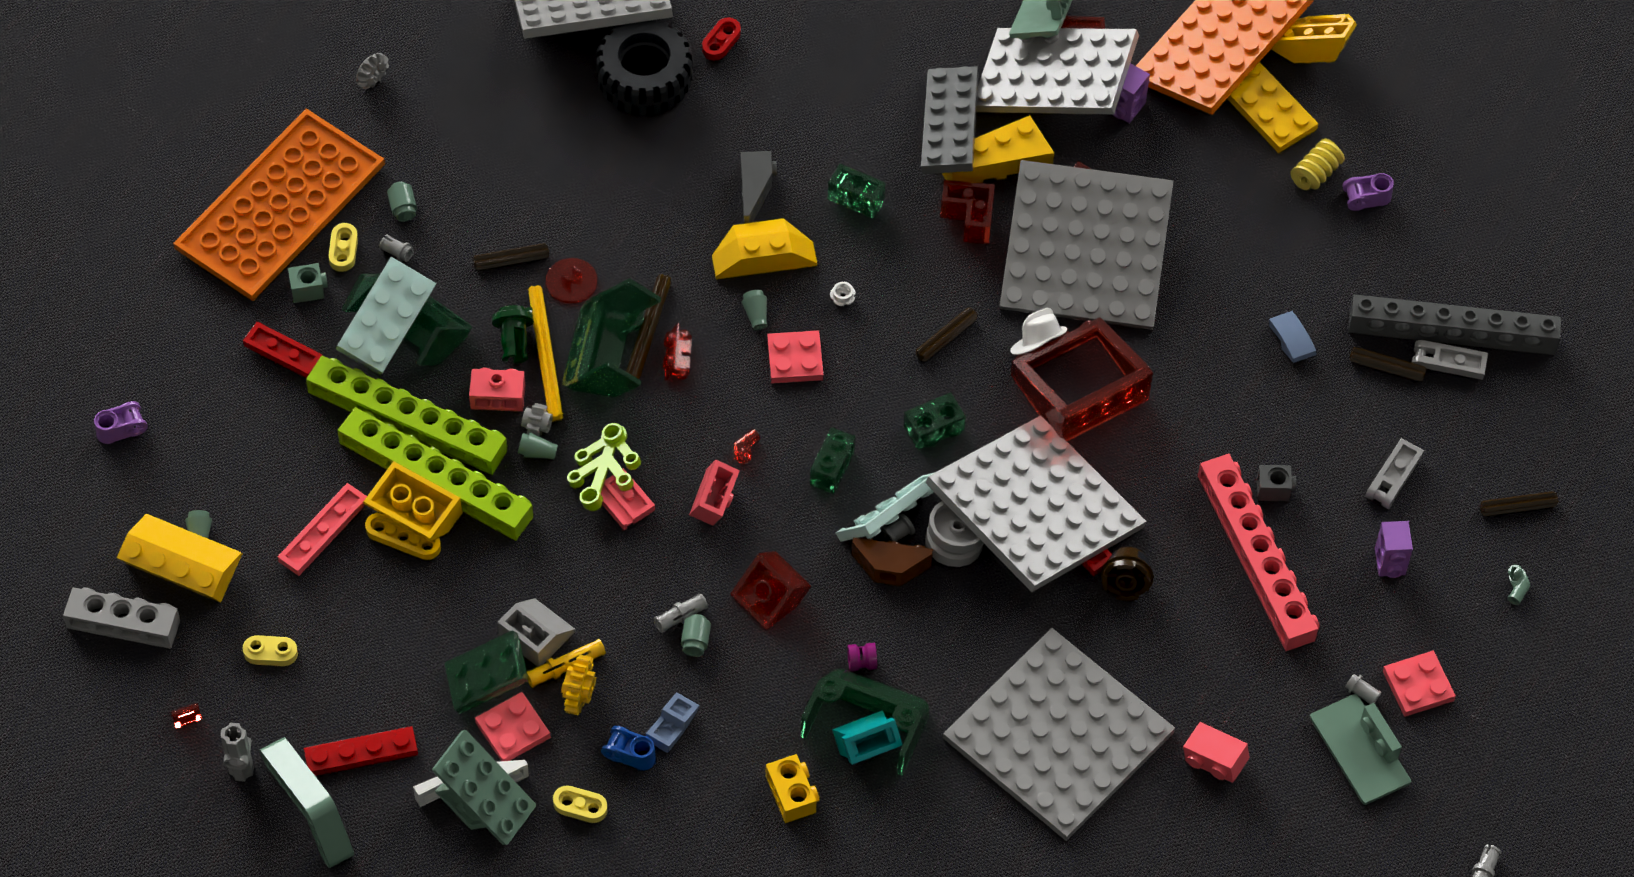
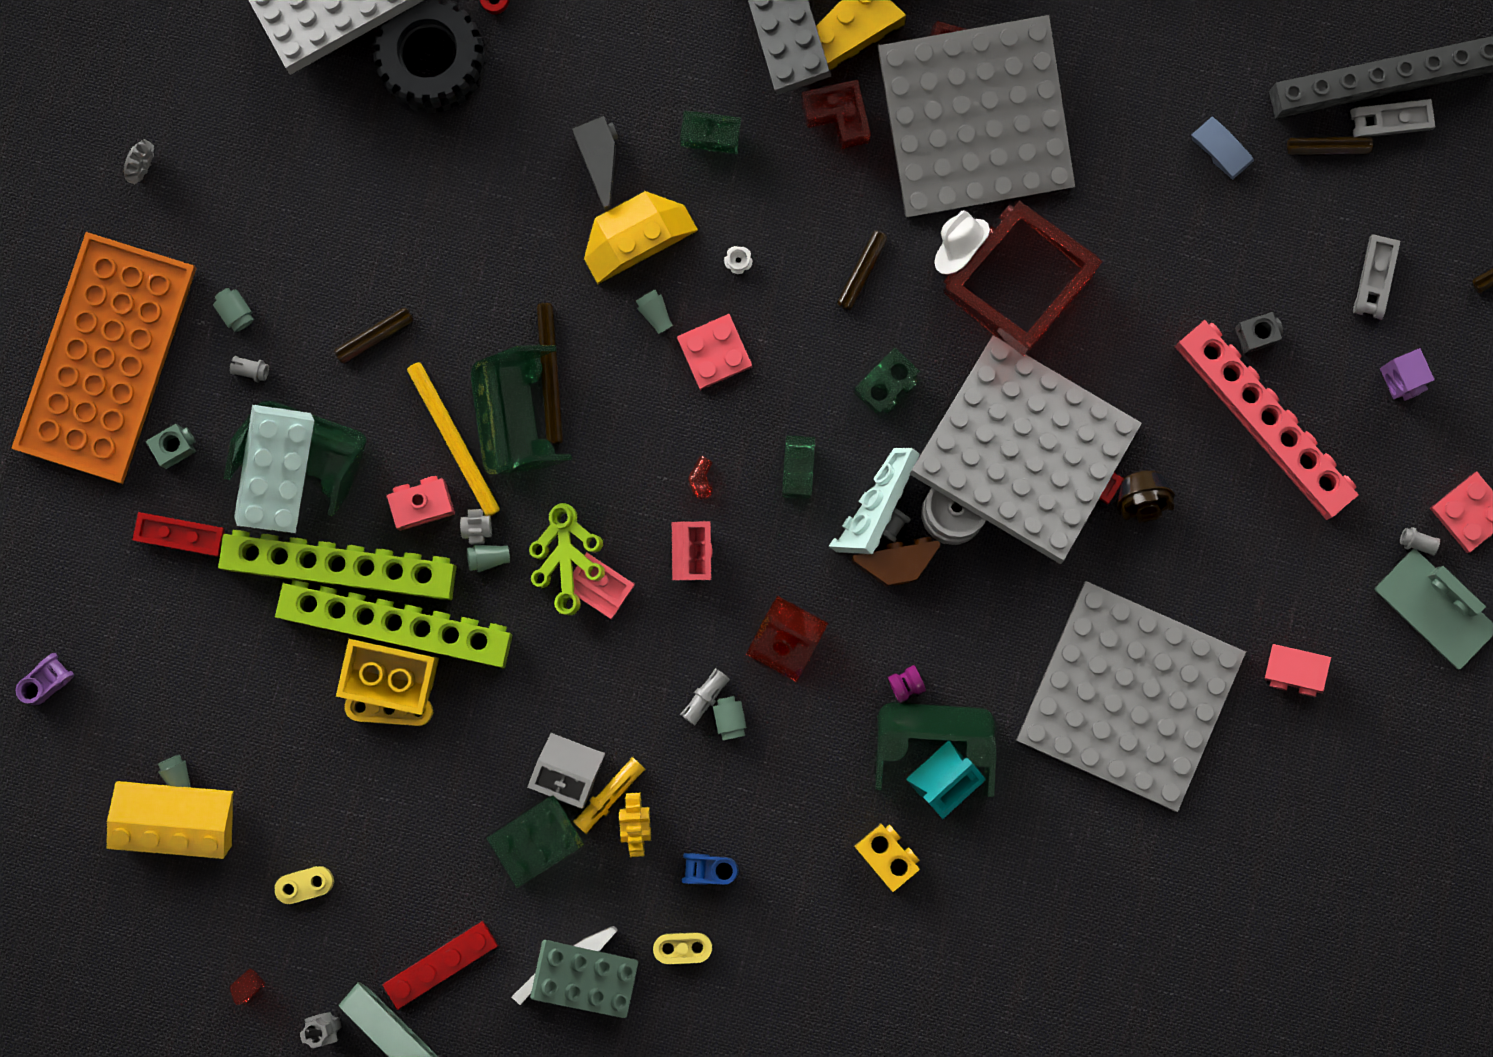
camera: 15 degrees left, 25 degrees up
(159, 632) = (93, 916): light grey brick -> none
(322, 529) = (303, 730): coral plate -> none
(343, 249) = (193, 388): light yellow plate -> none
(512, 322) = (412, 431): dark green piece -> none
(512, 727) = (582, 885): coral plate -> none
(571, 280) = (447, 340): clear red piece -> none
(673, 722) = (740, 822): sand blue slope -> none
(677, 343) = (592, 405): clear red hinge -> none

